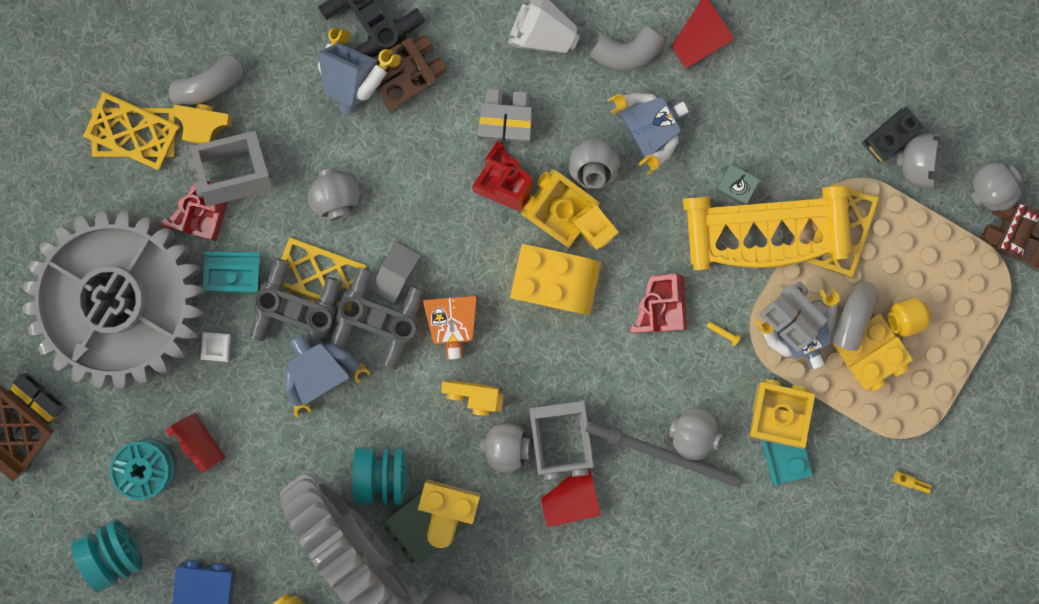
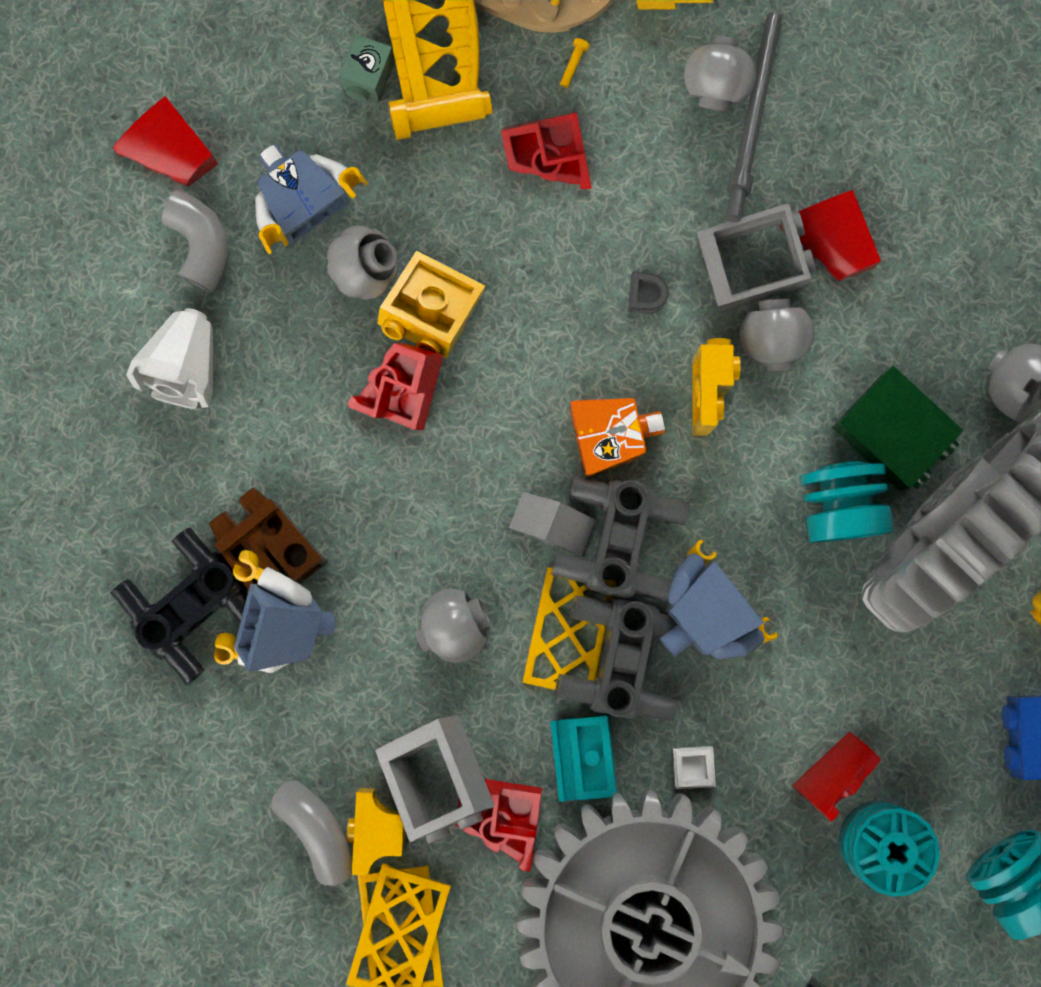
camera: 90 degrees left, 5 degrees down
(447, 508) = (877, 396): yellow brick -> none
(493, 114) = (319, 396): light grey hips -> none
(549, 361) = (647, 293): none -> dark grey tile
(556, 279) = (531, 299): yellow brick -> none
(594, 226) = (450, 247): yellow brick -> none

